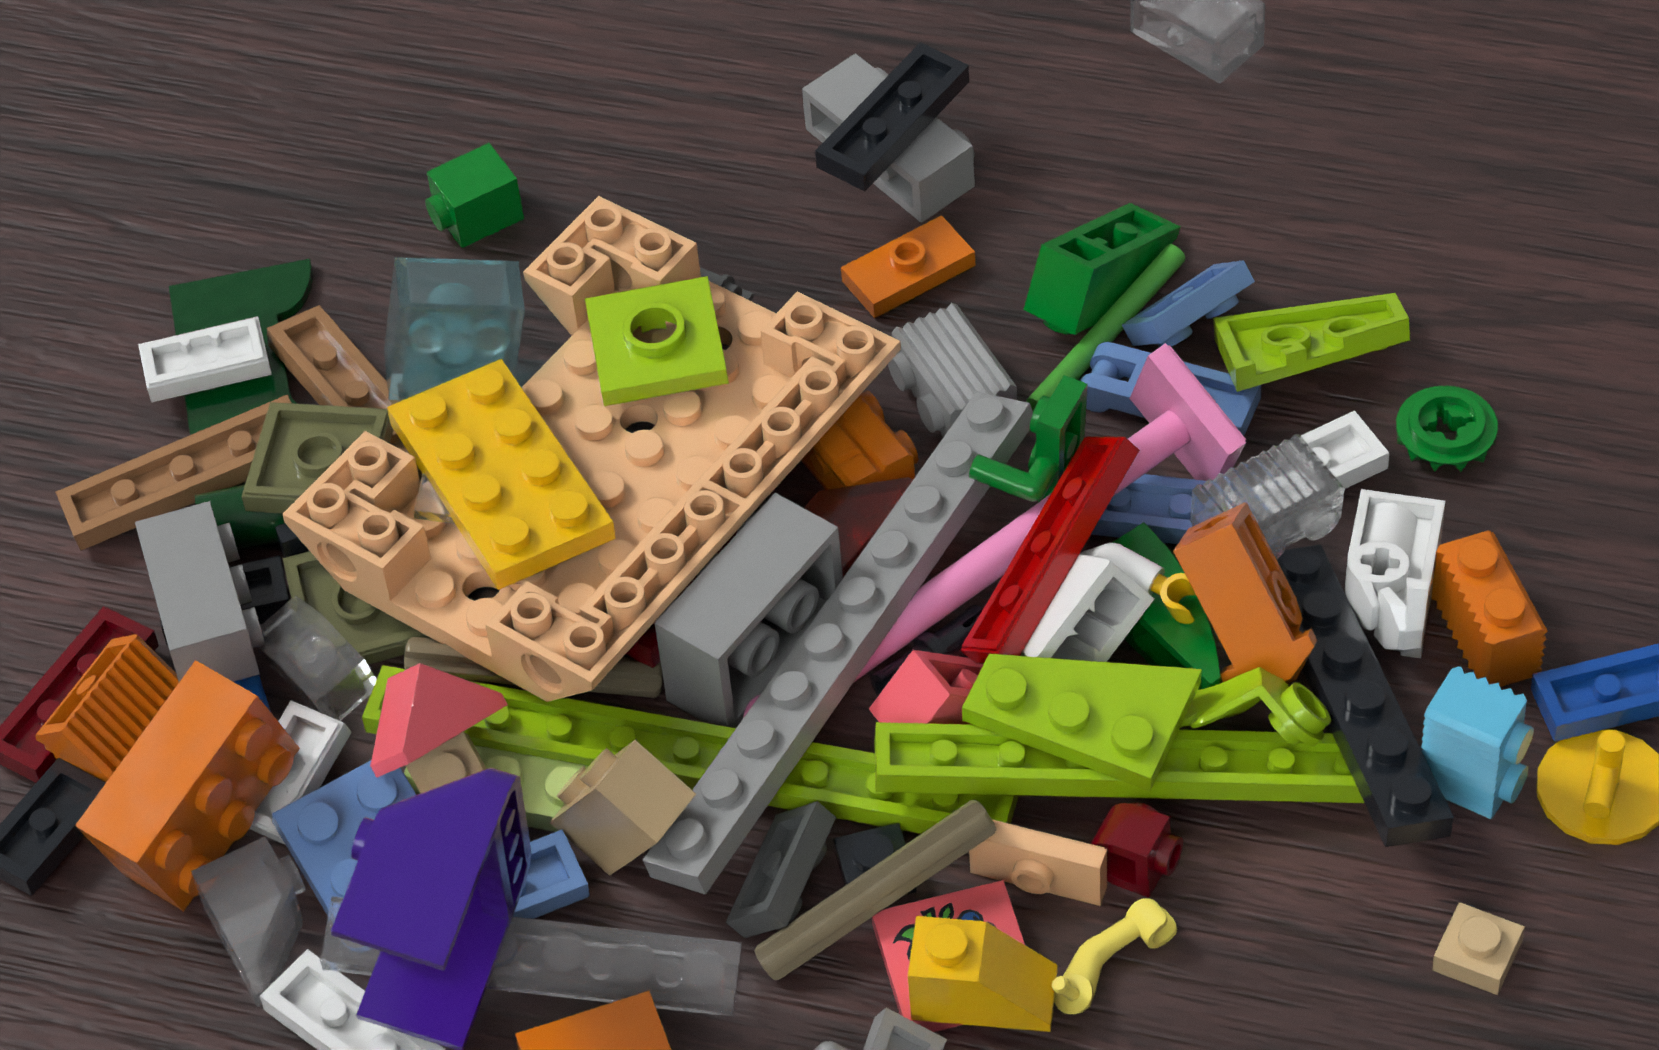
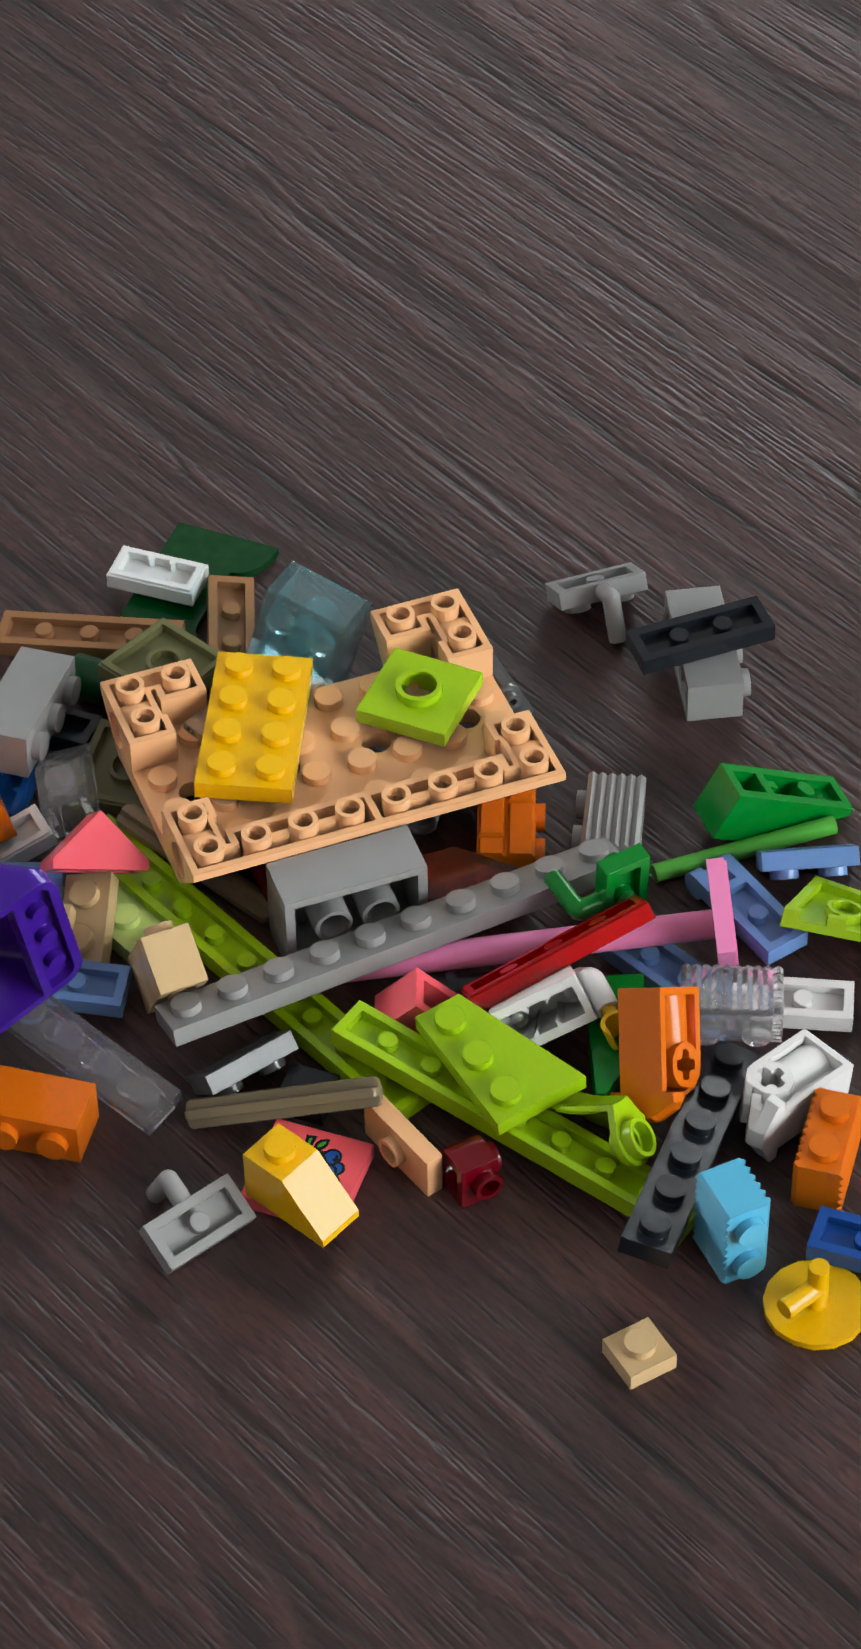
camera: 30 degrees right, 5 degrees down
(474, 196) = (406, 558): green brick -> none
(718, 115) = (605, 585): none -> light grey plate
(908, 266) = (649, 743): orange plate -> none
(1079, 983) = (440, 1218): light yellow piece -> none

